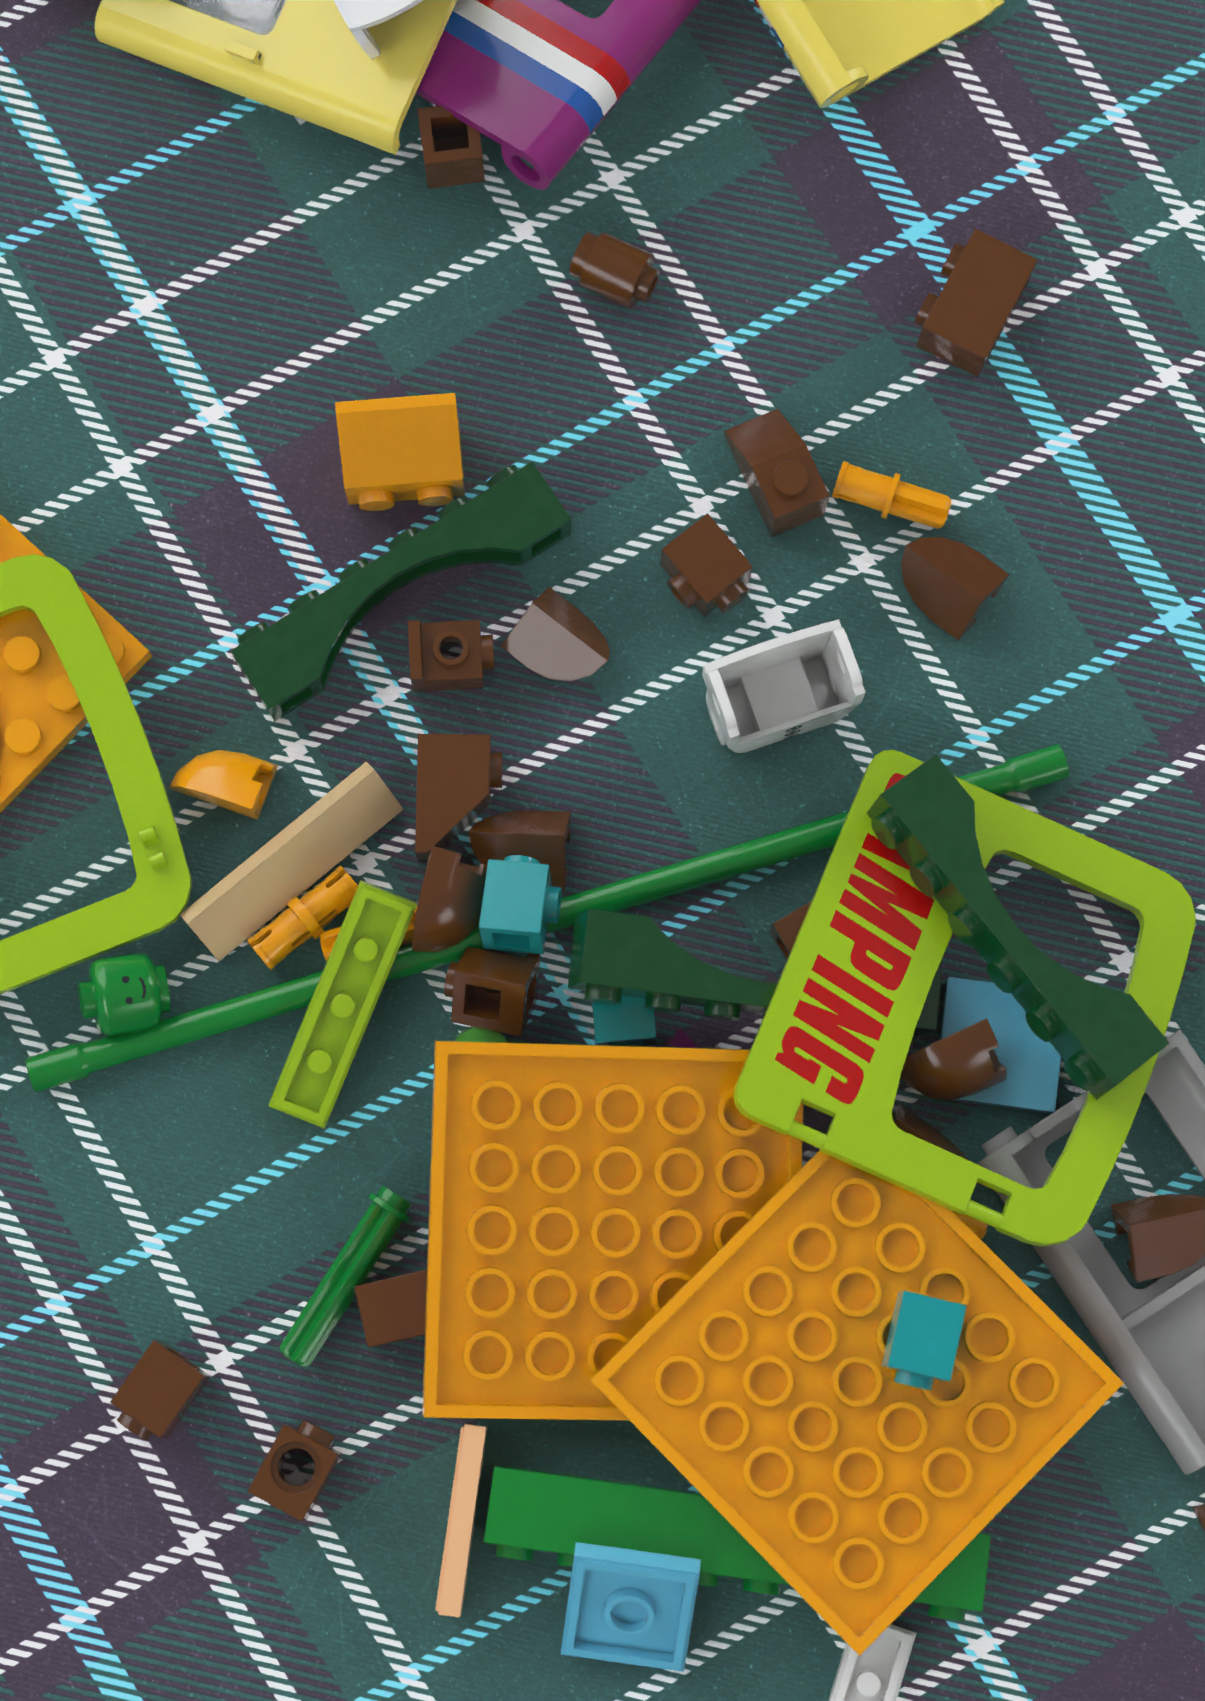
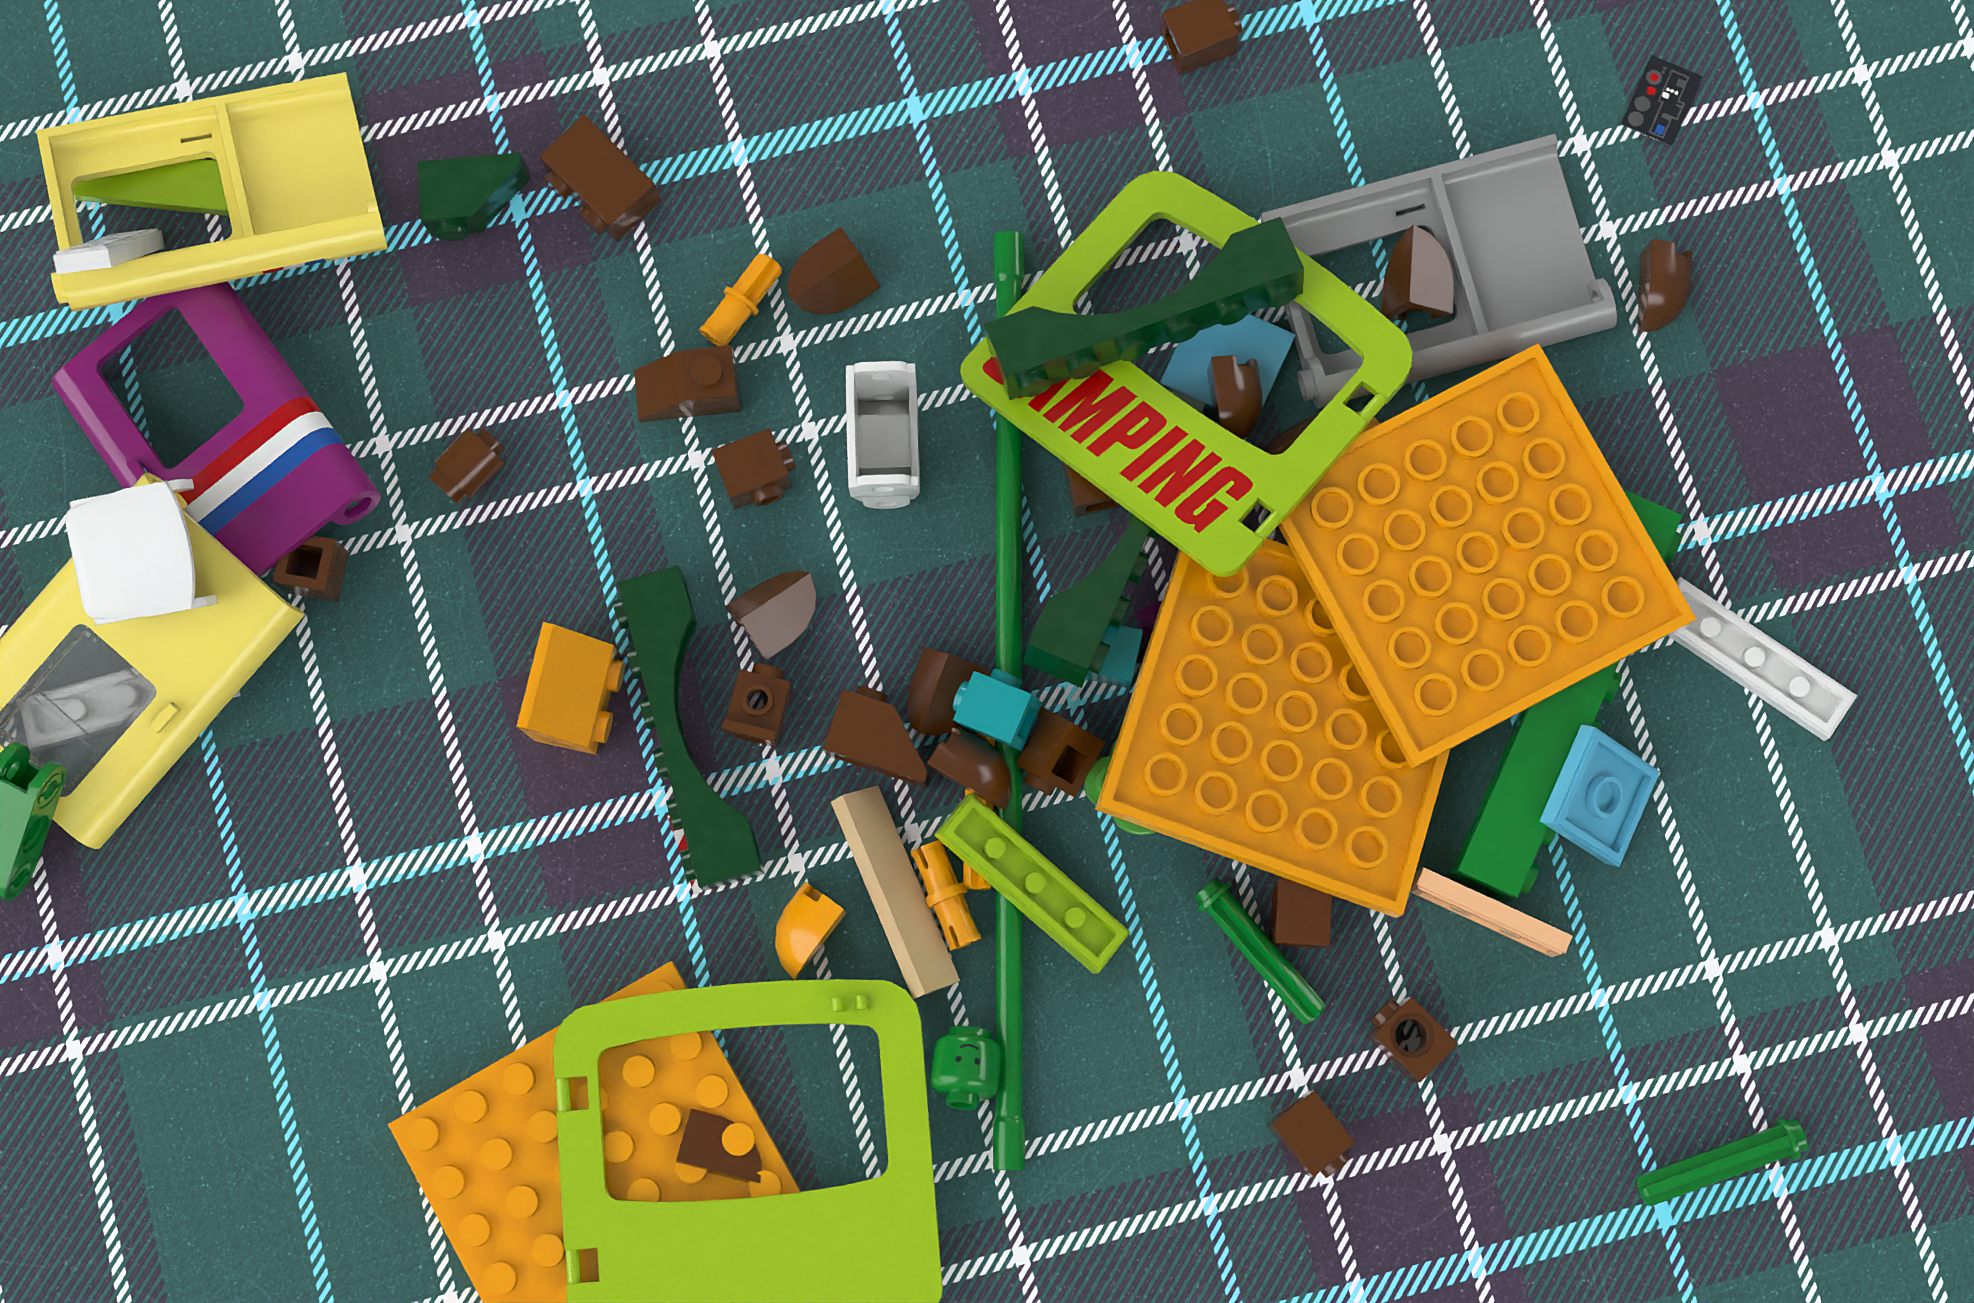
camera: 70 degrees left, 0 degrees up
(912, 170) = (467, 192): none -> dark green slope
(923, 1339) = (1463, 485): teal brick -> none

